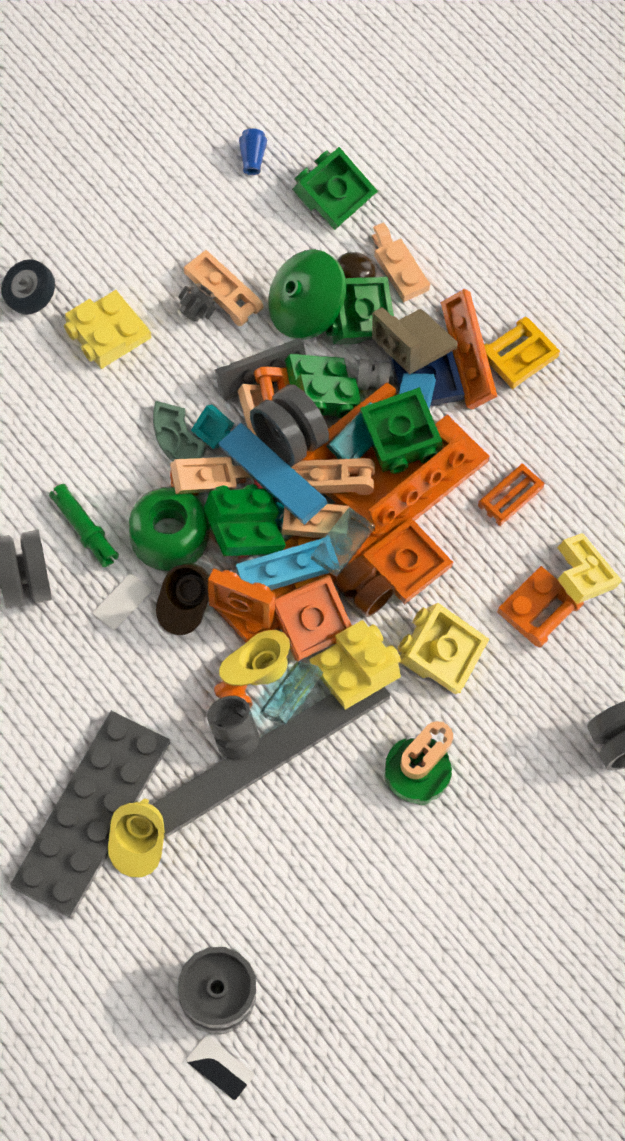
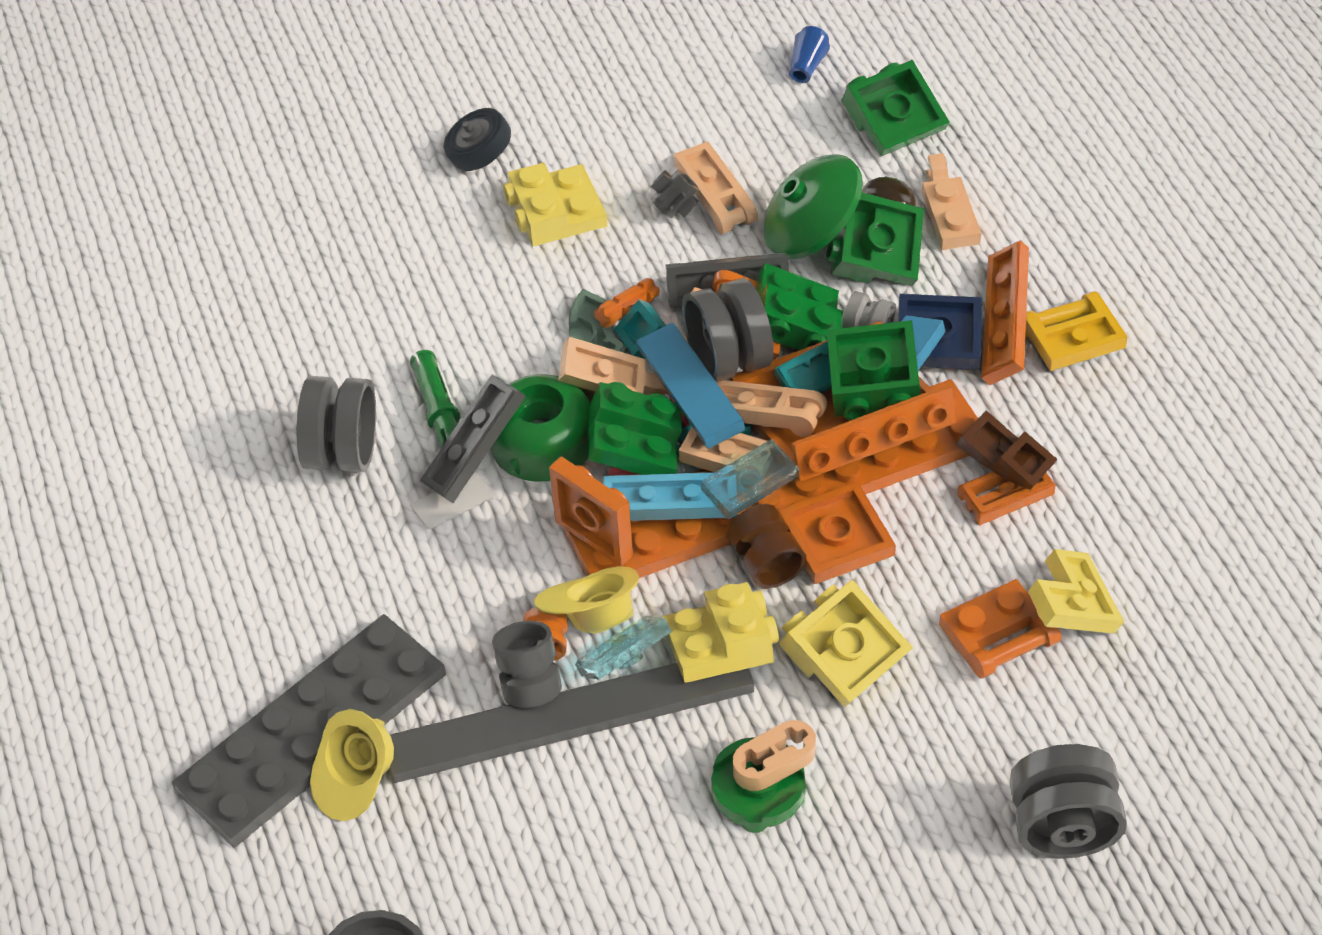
camera: 25 degrees right, 15 degrees down
(127, 555) = (472, 438): none -> dark grey tile
(183, 599) = (522, 509): dark brown cap -> none
(194, 406) = (616, 309): none -> orange axle
(311, 617) = (680, 564): orange plate -> none
(411, 340) = (928, 283): dark tan bracket -> none
(506, 469) = (998, 449): none -> reddish brown slope

